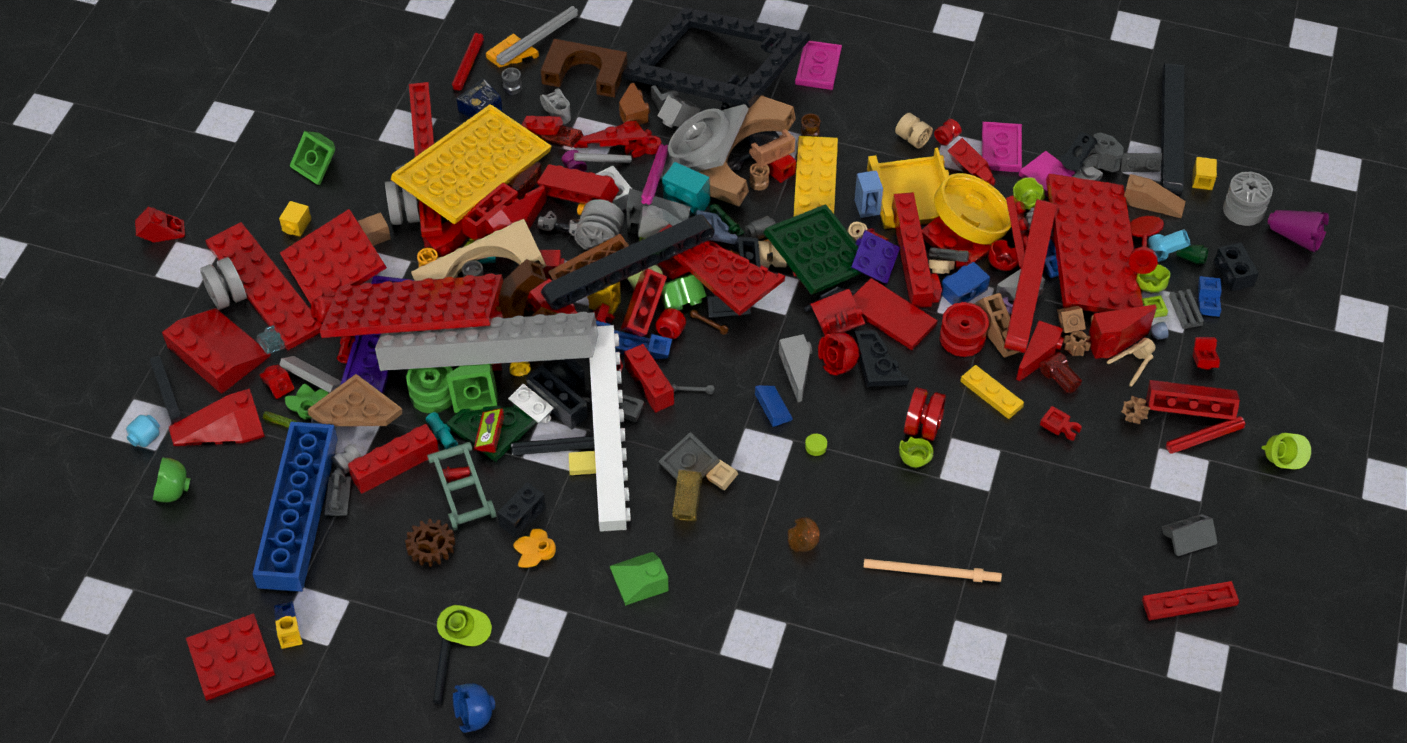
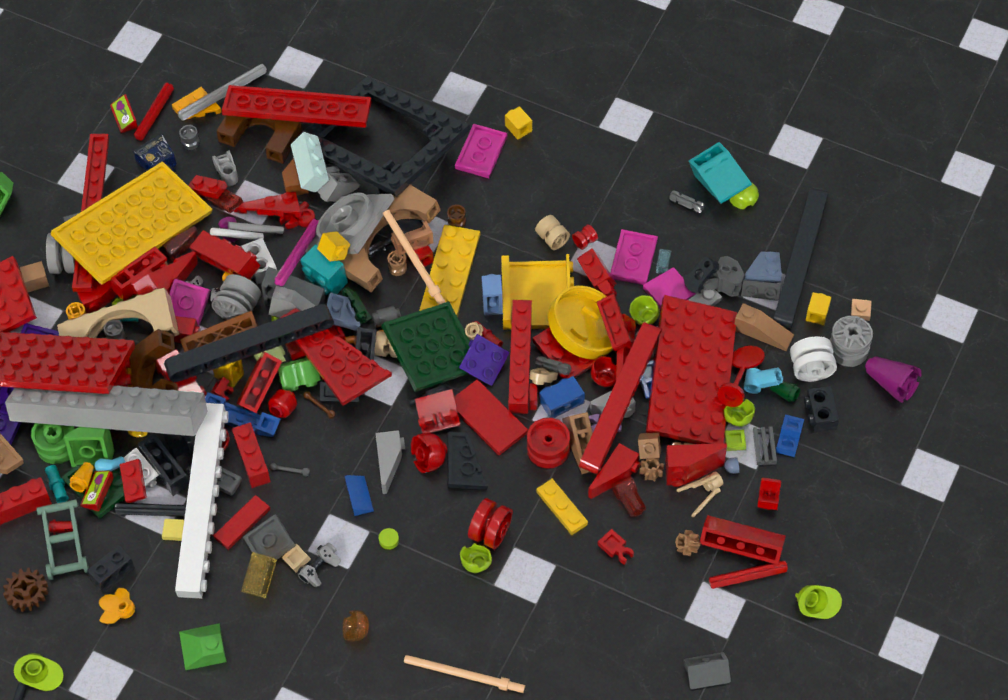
camera: 10 degrees right, 5 degrees up
(437, 67) = (123, 114): none -> slope
(470, 421) = (81, 479): none -> light orange cone
(497, 403) = (108, 465): none -> medium azure arm
(527, 416) = (133, 481): none -> red plate
(548, 231) = (189, 299): none -> dark pink tile
(583, 164) = (236, 233): none -> white bar
(621, 37) = (296, 106): none -> red plate
(648, 87) = (309, 162): none -> light aqua brick
(653, 447) = (241, 522): none -> red tile
(696, 160) = (333, 246): none -> yellow brick
(753, 467) = (325, 554): none -> light grey piece
(807, 195) = (433, 290): none -> light nougat bar
(851, 34) = (518, 122): none -> yellow brick
(1004, 205) = (614, 322): none -> red tile
(1033, 146) = (663, 261): none -> clear light blue piece
(1041, 89) = (687, 201): none -> dark grey axle
(1070, 56) = (719, 172): none -> teal slope
(1097, 77) = (746, 197): none -> lime hair
(1141, 140) = (765, 268): none -> sand blue wing
(1216, 218) = (813, 359): none -> white wheel
(1245, 166) = (861, 308): none -> light nougat plate

